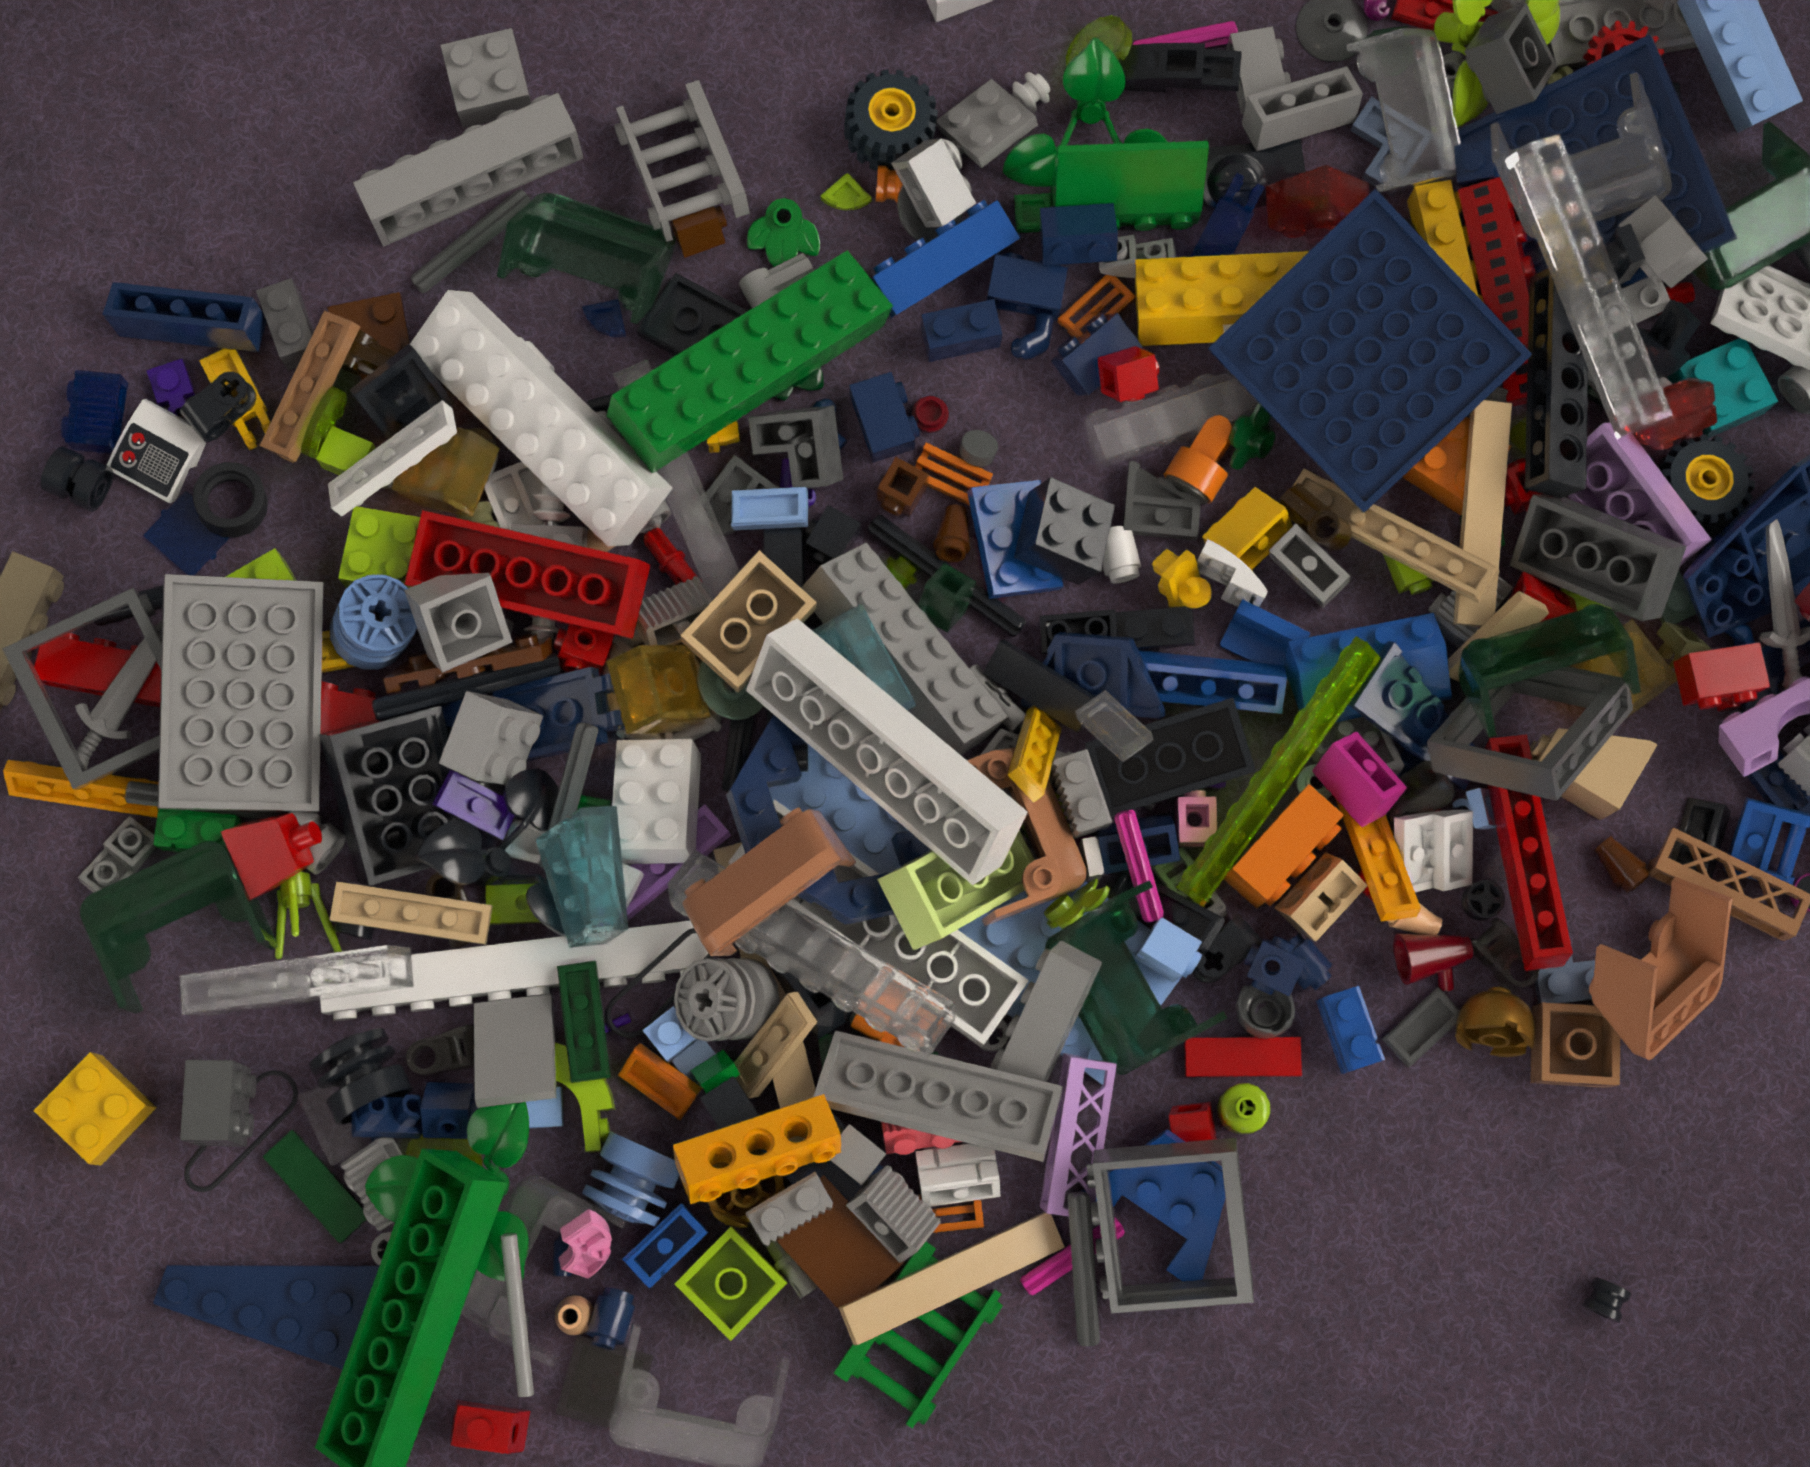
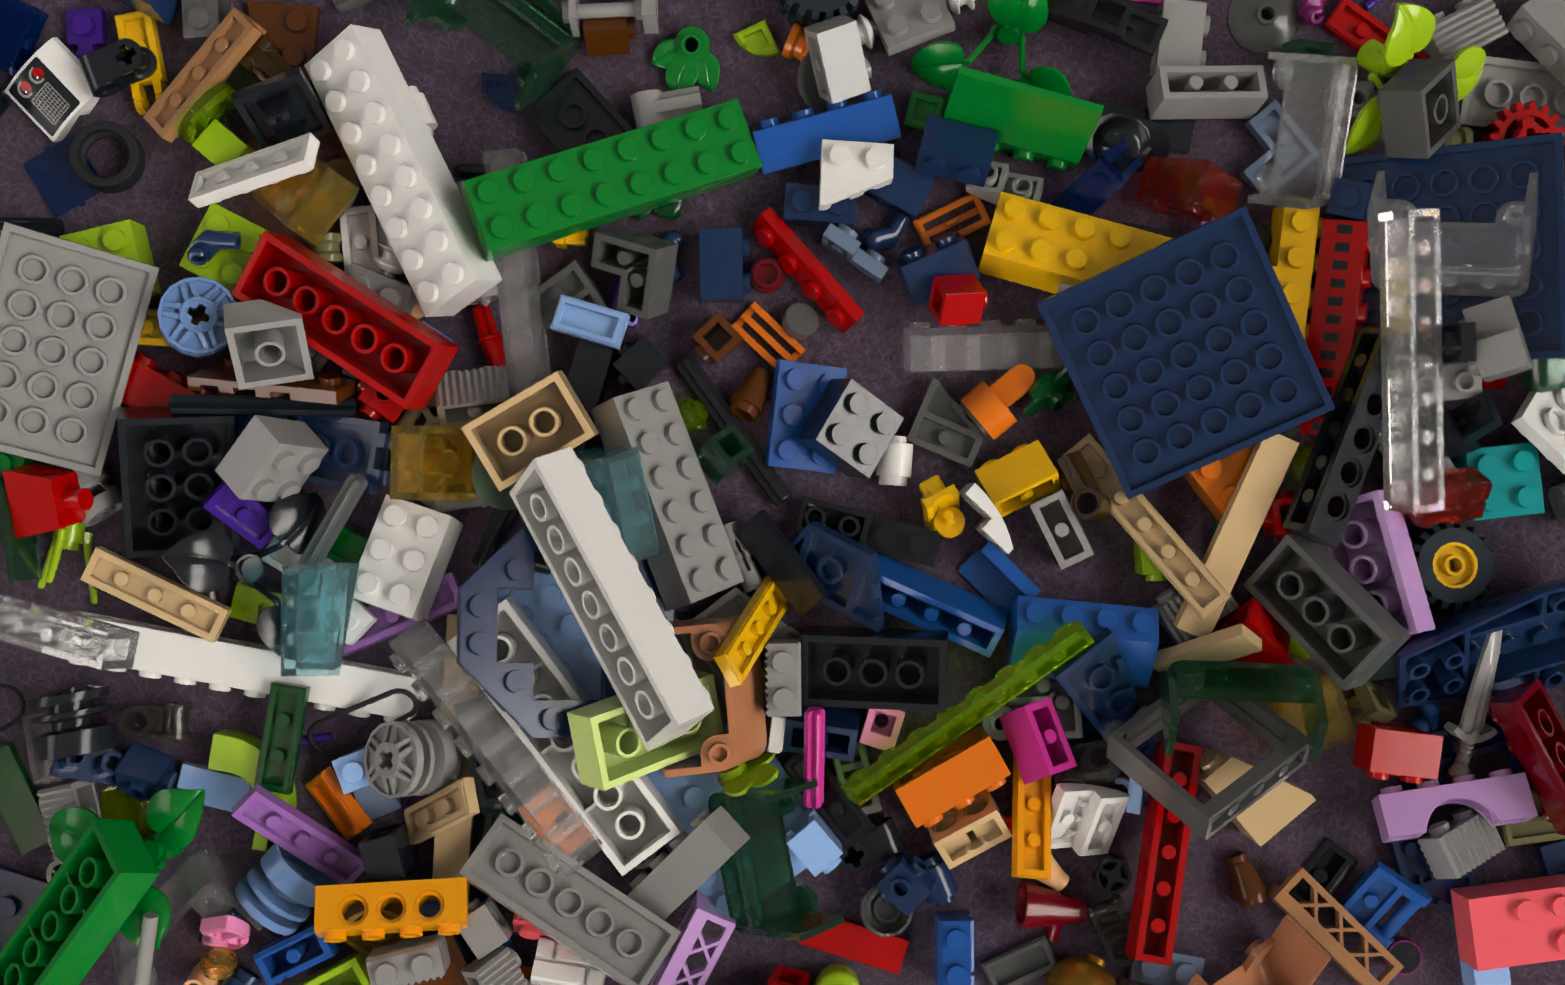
camera: 25 degrees right, 10 degrees up
(367, 542) = (210, 243): none -> dark blue arm
(514, 1050) = (211, 746): light grey tile -> none
(585, 1286) = (218, 963): none -> clear yellow plate
(626, 1114) = (299, 835): none -> medium lavender plate
(715, 1071) = (386, 815): green tile -> none
(764, 880) = (464, 688): nougat windscreen -> none
(969, 396) = (806, 270): none -> red plate
(983, 281) = (852, 169): none -> white wing
(997, 358) = (843, 243): none -> sand blue plate
(1114, 726) = (831, 630): clear tile -> none

